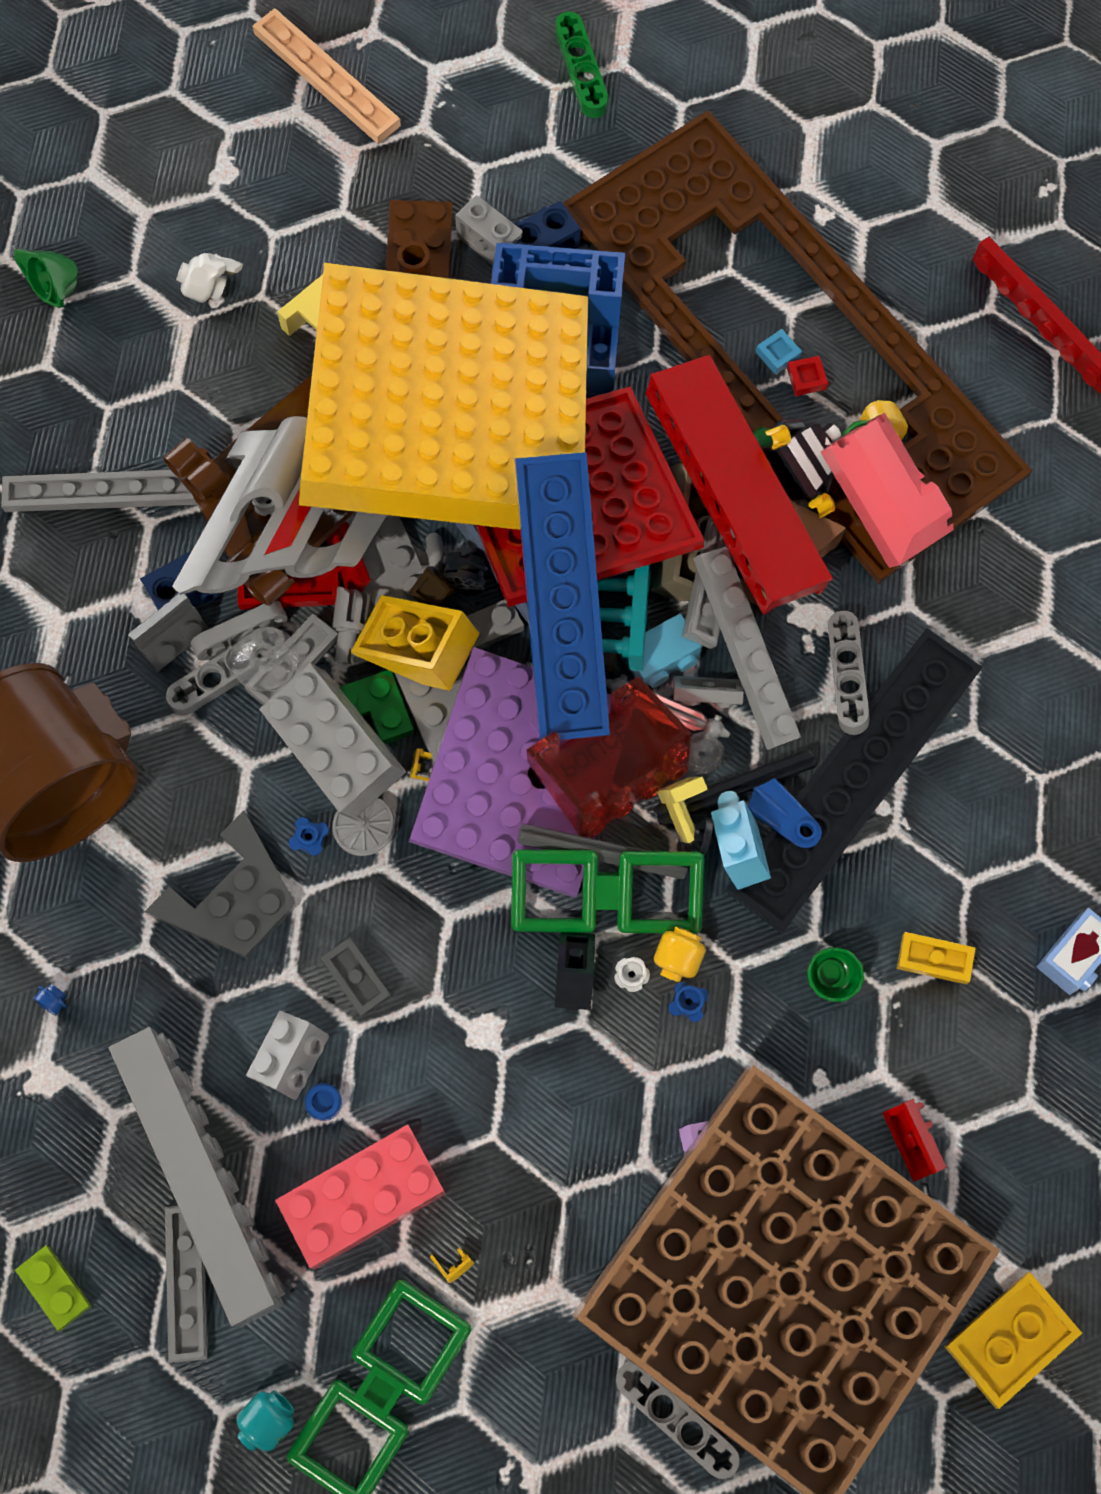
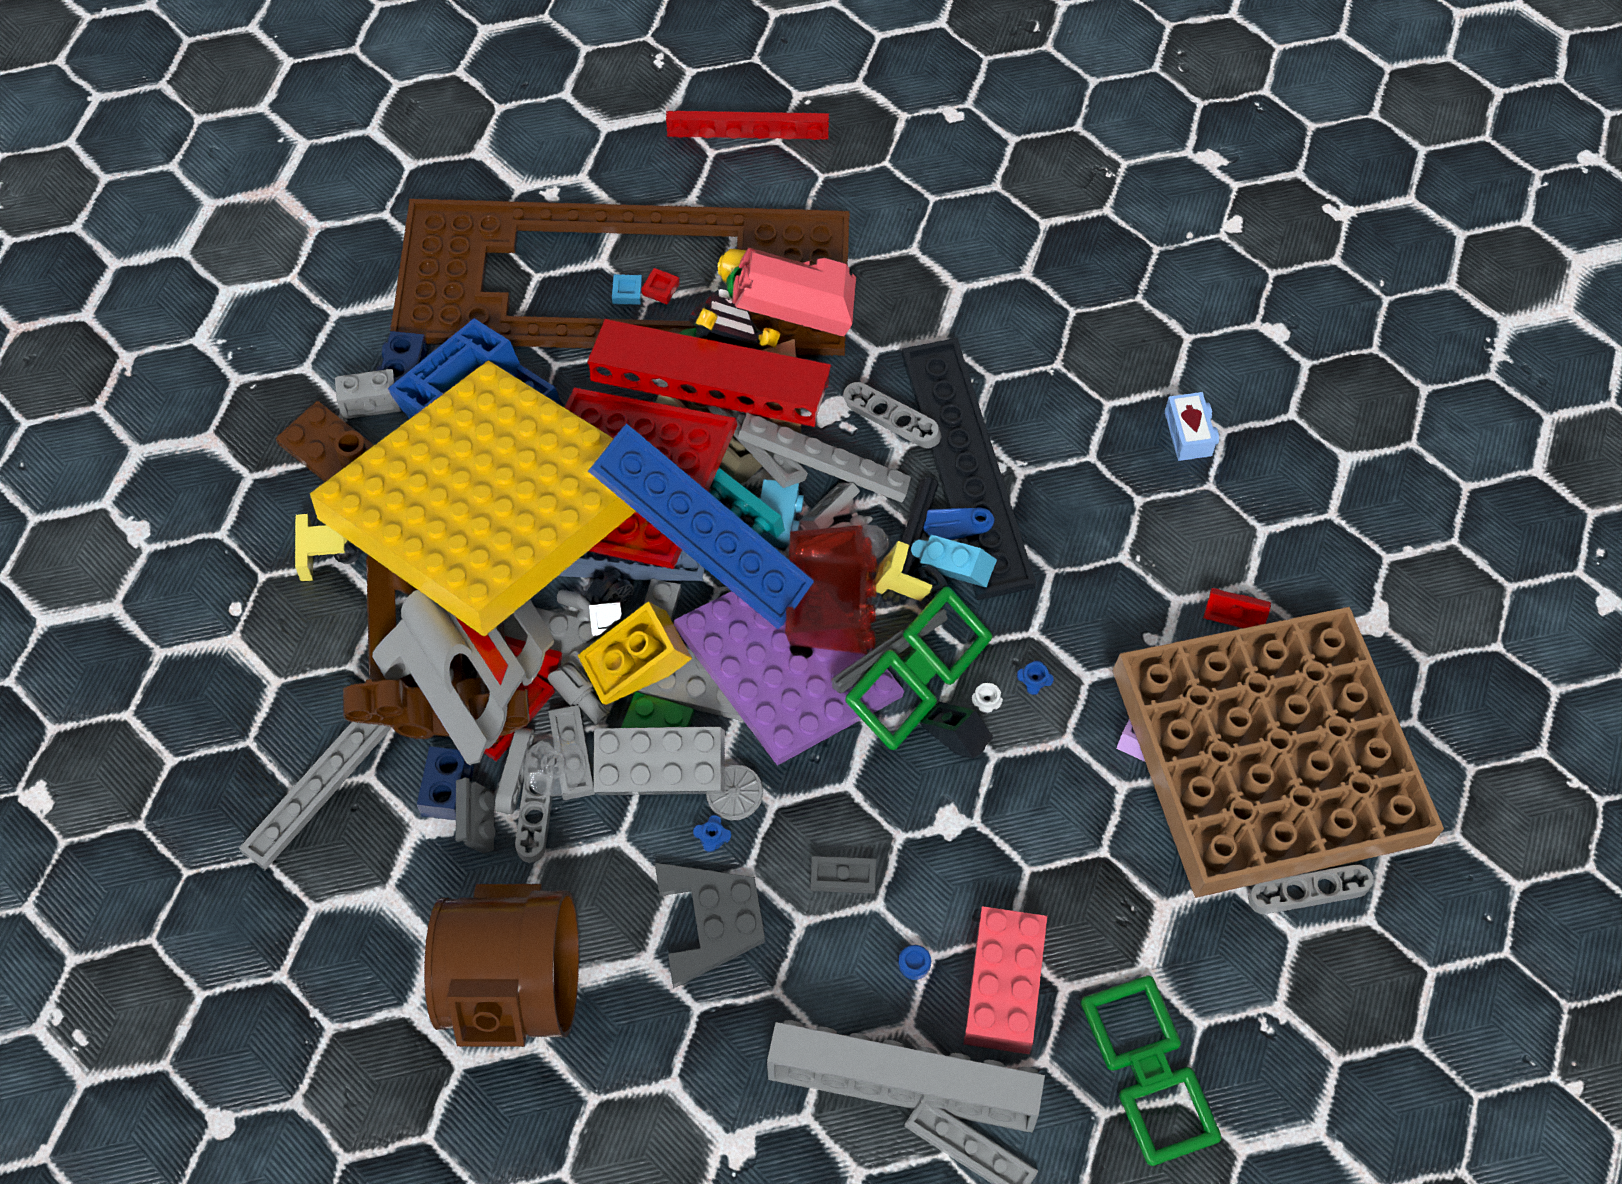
camera: 50 degrees left, 10 degrees down
(48, 274) = (103, 704): green hat -> none
(50, 999) = (683, 1097): blue plate -> none
(204, 277) = (216, 597): white head -> none
(265, 1421) = (1114, 1157): teal head -> none
(288, 1055) = (861, 960): light grey bracket -> none
(326, 76) = (132, 408): light nougat plate -> none
(419, 753) = (715, 722): yellow piece -> none
(455, 1273) = (1103, 957): yellow piece -> none
(581, 64) = (290, 250): green beam -> none
(679, 954) = (999, 656): yellow head -> none
(835, 974) = (1091, 573): green hair -> none
(936, 958) = (1127, 509): yellow plate -> none
(1013, 1340) = (1408, 649): yellow plate -> none

